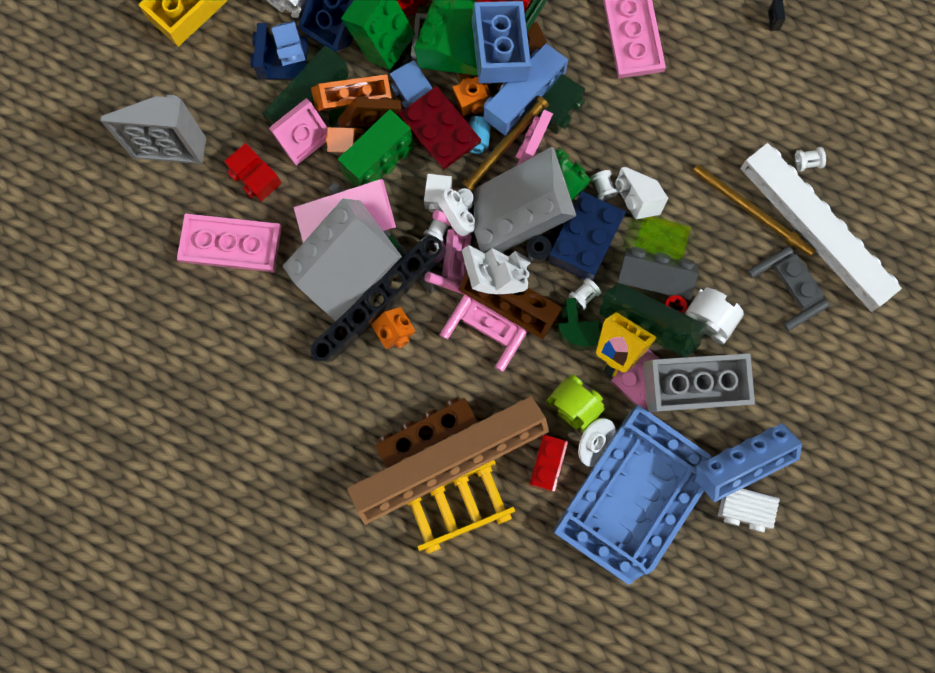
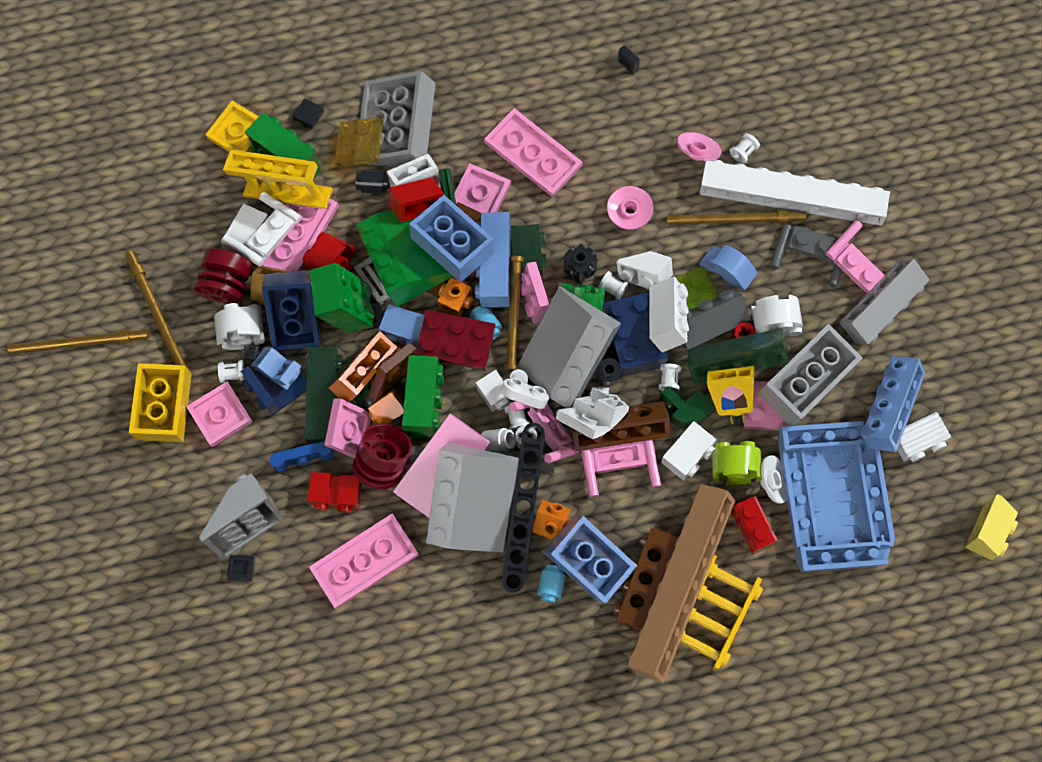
camera: 40 degrees left, 5 degrees down
(138, 174) = (241, 568): none -> black tile
(220, 46) = (219, 414): none -> bright pink plate
(249, 124) = (301, 456): none -> blue plate
(252, 17) = (230, 371): none -> white bush
(282, 17) = (252, 352): none -> black plate
(306, 172) = (381, 456): none -> dark red wheel
(352, 376) = (551, 583): none -> medium azure brick
(393, 382) = (590, 559): none -> medium blue brick
(406, 233) = (500, 440): none -> white brick
(548, 363) = (689, 451): none -> white brick
(565, 28) = (482, 189): none -> bright pink plate
(593, 146) = (580, 269): none -> black brick
(623, 240) = (668, 314): none -> white brick
(672, 124) = (630, 198): none -> bright pink dish
(712, 244) = (731, 265): none -> medium blue brick
(742, 631) = (992, 528): none -> light yellow slope
(772, 128) = (699, 146): none -> bright pink dish
(817, 374) = (884, 301): none -> light grey brick
(820, 330) = (853, 261): none -> bright pink plate

